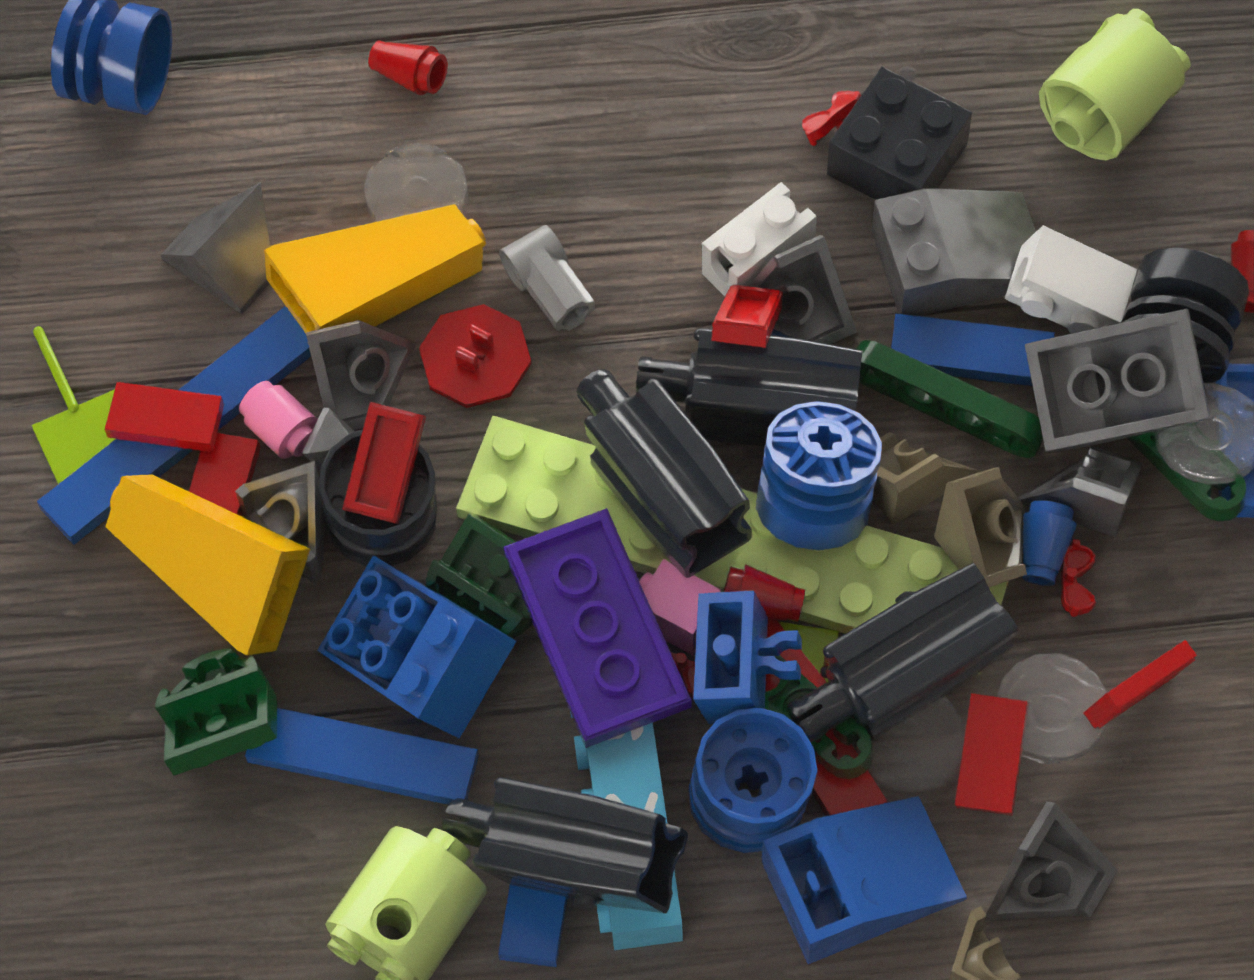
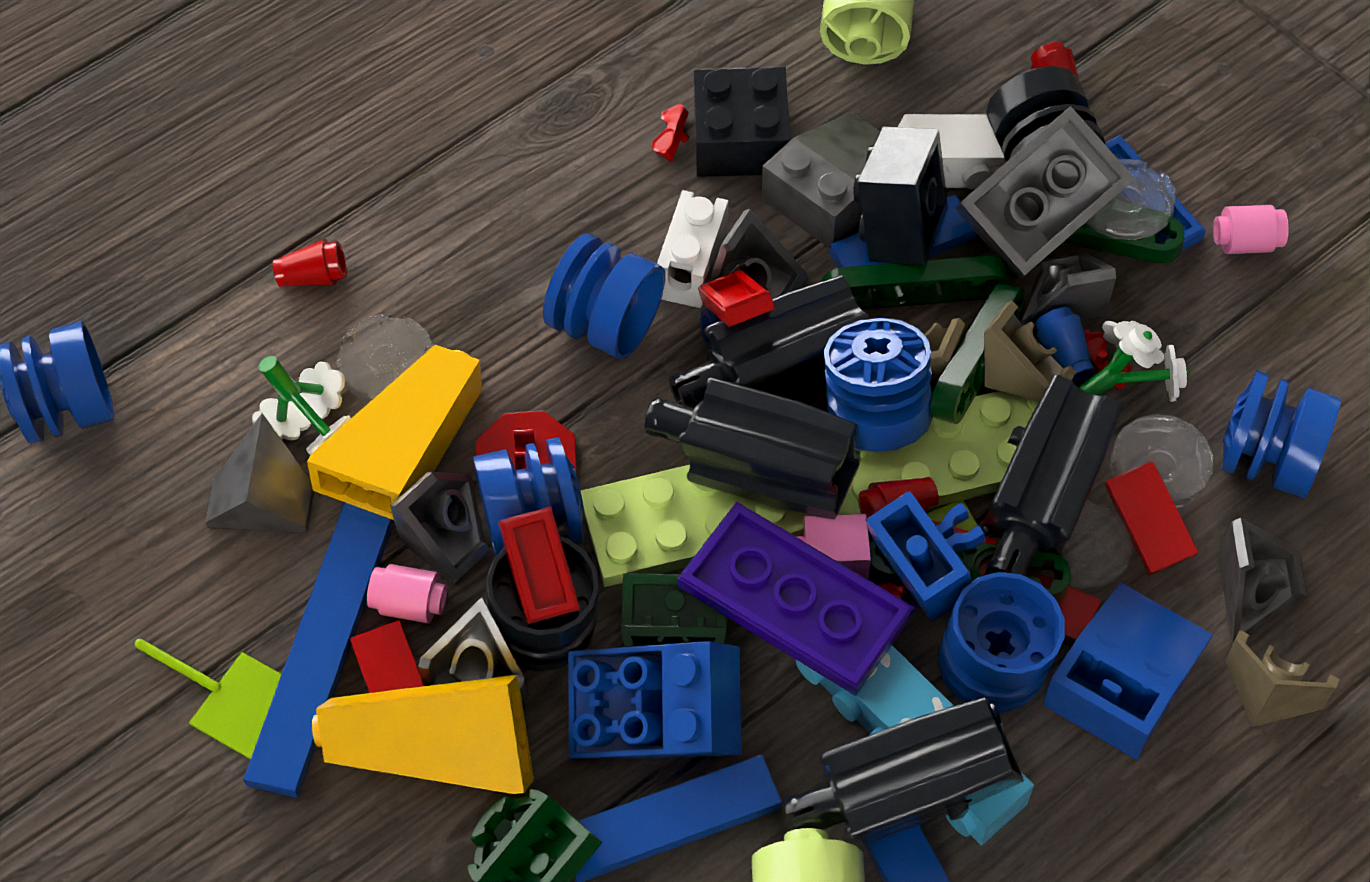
camera: 35 degrees left, 5 degrees down
(164, 416) = (308, 645): red tile -> none
(289, 193) = (302, 401): none -> white plant
(326, 433) = (464, 584): flat silver slope -> none
(449, 394) = (516, 492): none -> blue wheel
(542, 268) = (532, 358): light grey piece -> none
(636, 244) = (604, 296): none -> blue wheel
(916, 511) = (966, 368): none -> dark green beam
(978, 305) = (902, 195): none -> black brick
(1091, 585) = (1143, 345): none -> white plant
(1140, 685) = (1218, 403): red tile -> none
(1162, 739) = (1280, 434): none -> blue wheel

